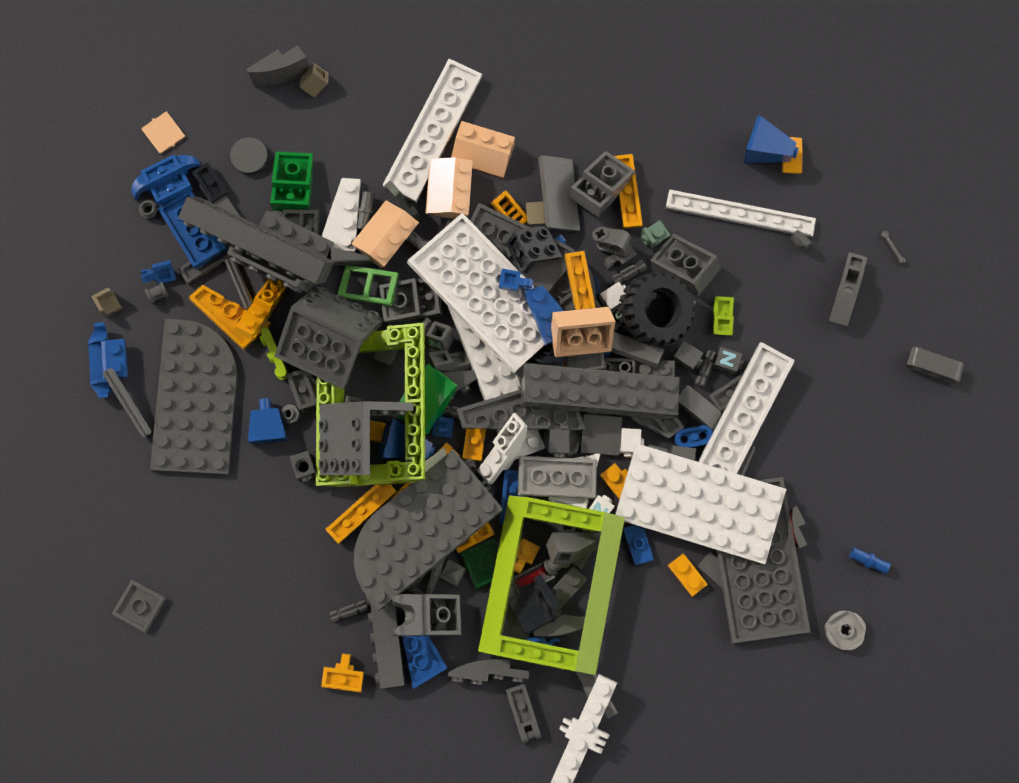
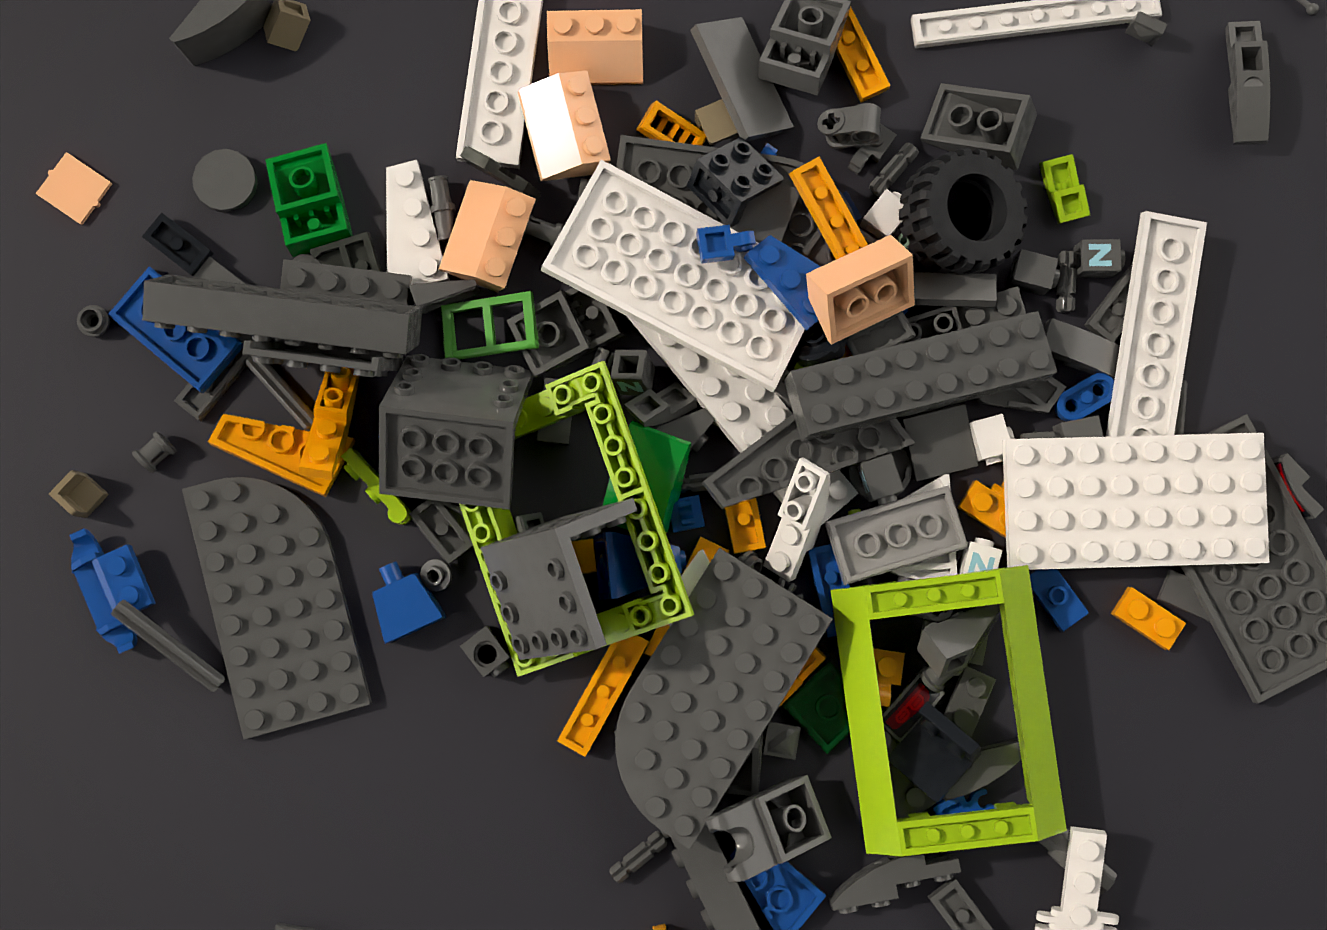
camera: 15 degrees left, 5 degrees up
(160, 272) = (149, 416): blue plate -> none
(165, 178) = (103, 261): blue plate -> none
(654, 234) = (913, 95): sand green bracket -> none

